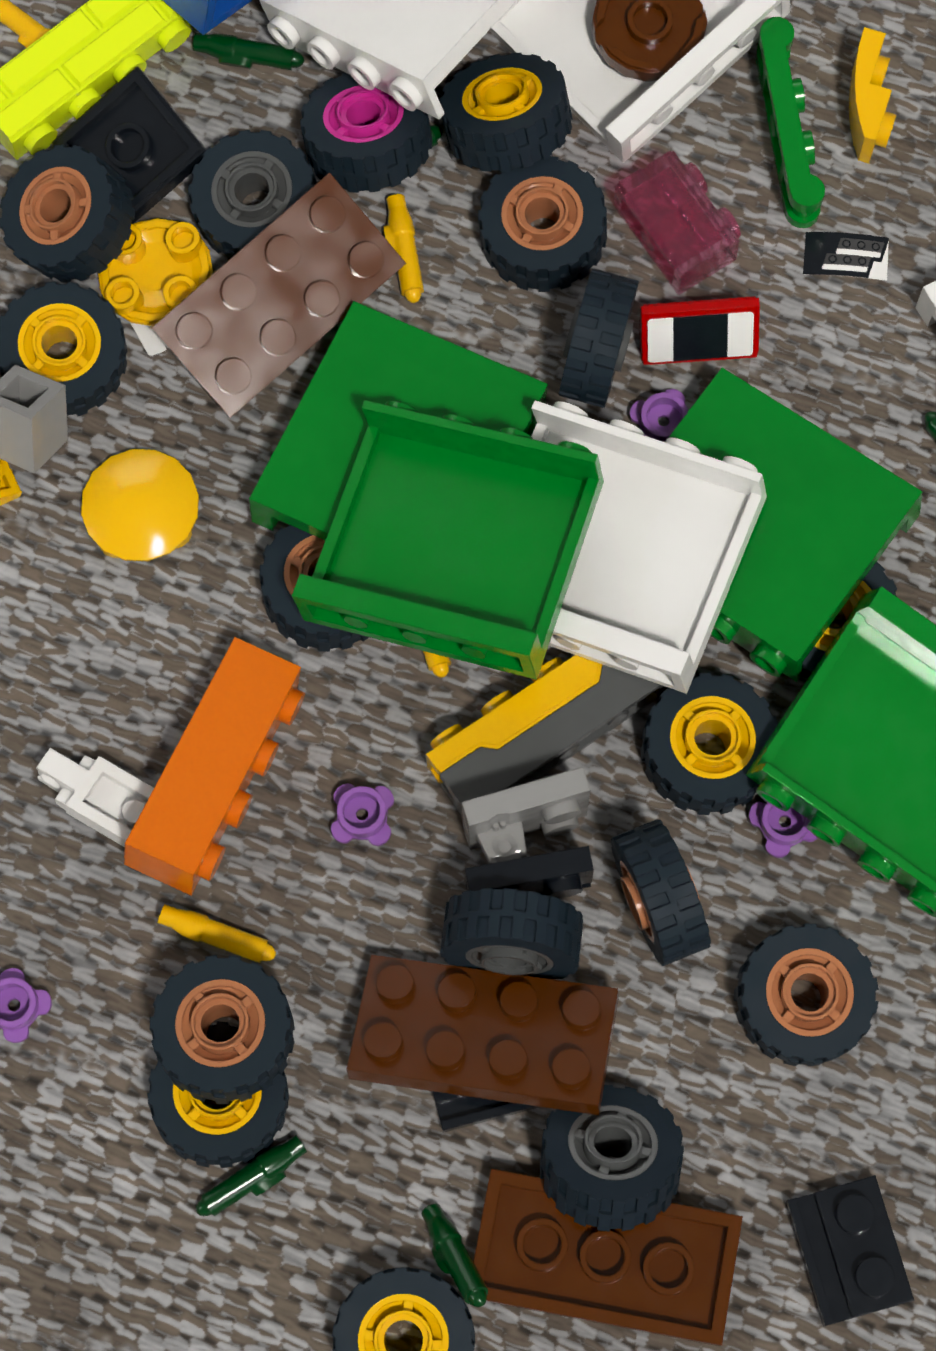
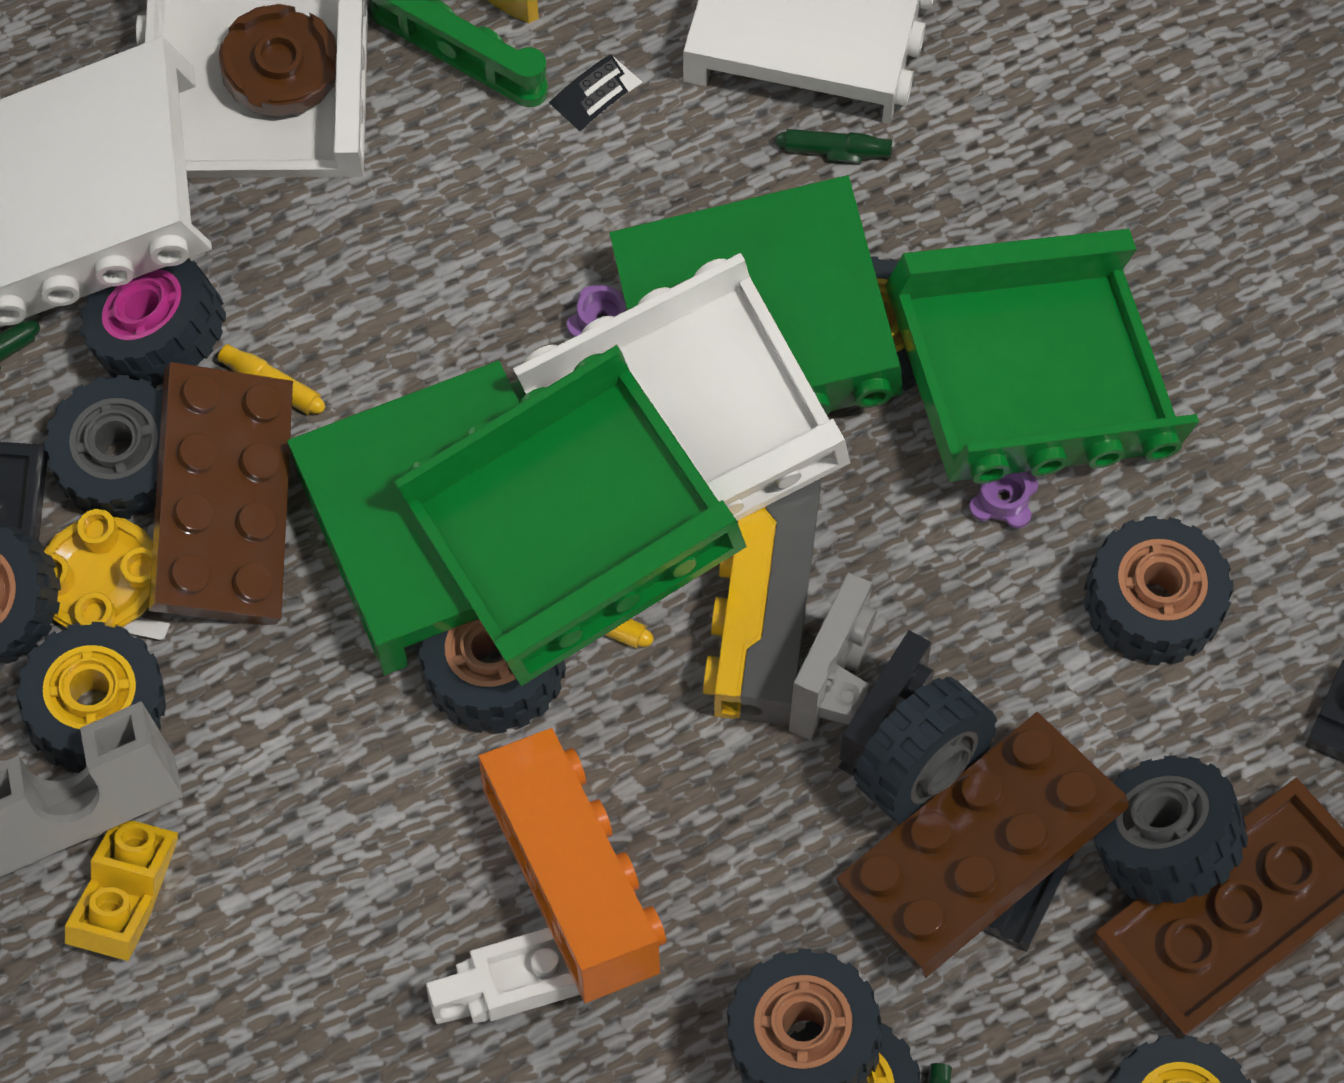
camera: 50 degrees left, 10 degrees down
(140, 505) = (283, 749): yellow dish -> none
(202, 928) = (701, 989): yellow piece -> none
(350, 801) = (707, 775): medium lavender plate -> none
(453, 1257) = (1143, 1019): dark green piece -> none
(506, 112) = (250, 209): black wheel -> none
(543, 256) = (364, 296): black wheel -> none
(598, 338) = (500, 293): black wheel -> none
(660, 892) = (989, 614): black wheel -> none
(677, 221) = (454, 173): clear pink brick -> none
(684, 771) = (888, 526): black wheel -> none
(699, 330) = (556, 231): slope -> none

